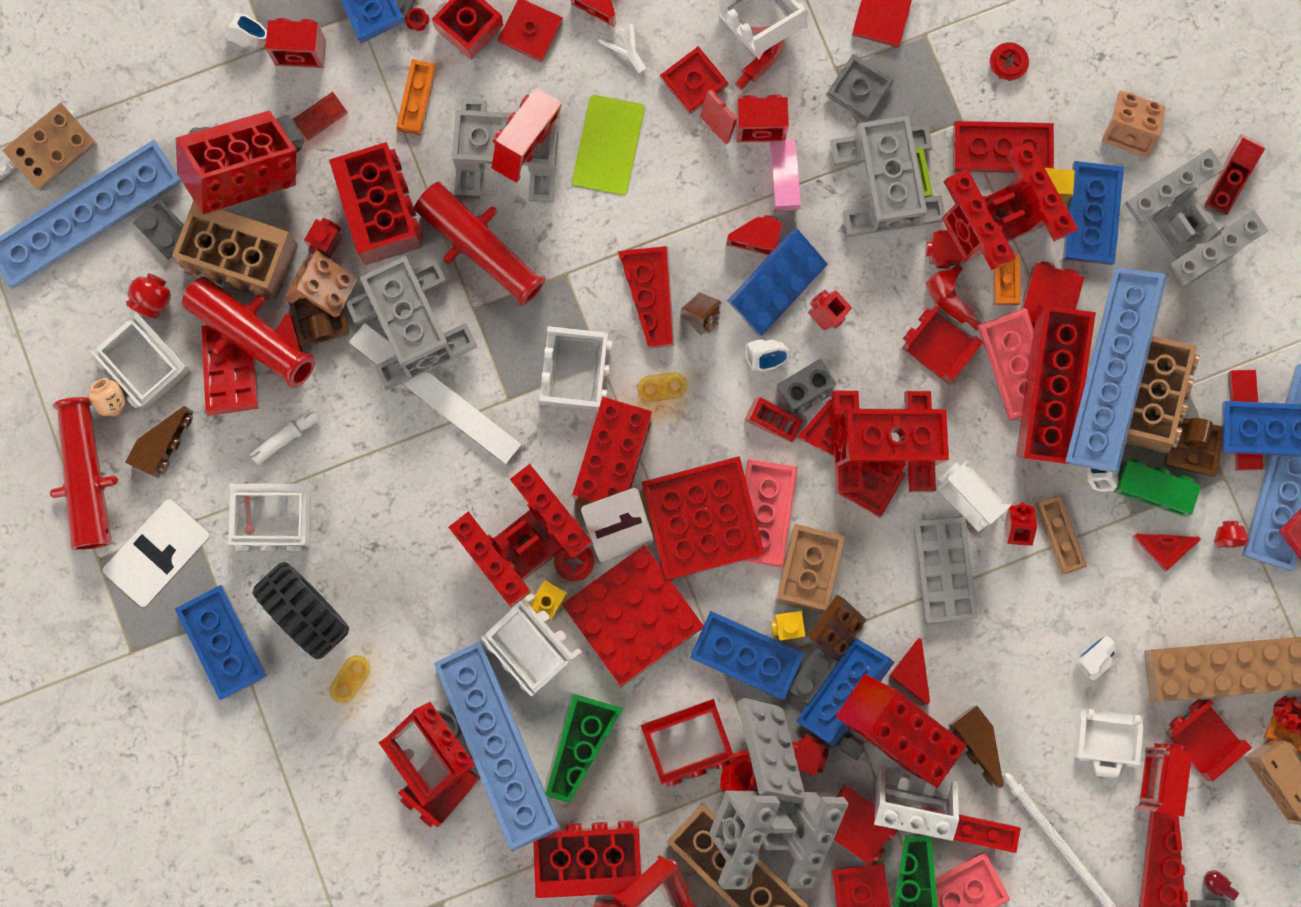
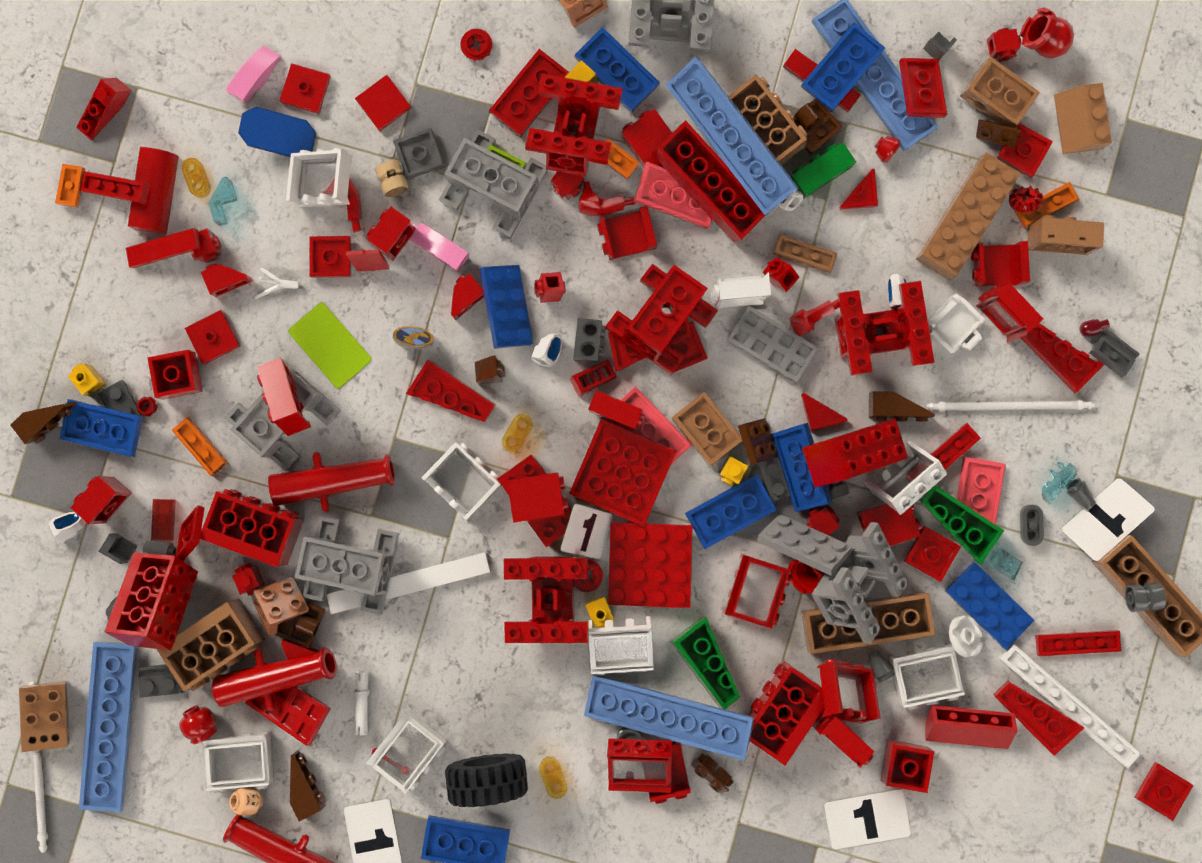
camera: 50 degrees left, 5 degrees up
(261, 94) = (118, 548): none -> dark grey panel
(328, 149) = (190, 533): none -> red tile
(469, 847) = (718, 779): none -> reddish brown hinge
(614, 447) = (537, 497): none -> red brick
(675, 216) = (412, 339): none -> shield
(758, 463) = (616, 410): none -> red brick
(817, 77) = (391, 176): none -> tan wheel
(992, 584) = (804, 321): none -> red animal
(1065, 687) = (902, 328): none -> red piece

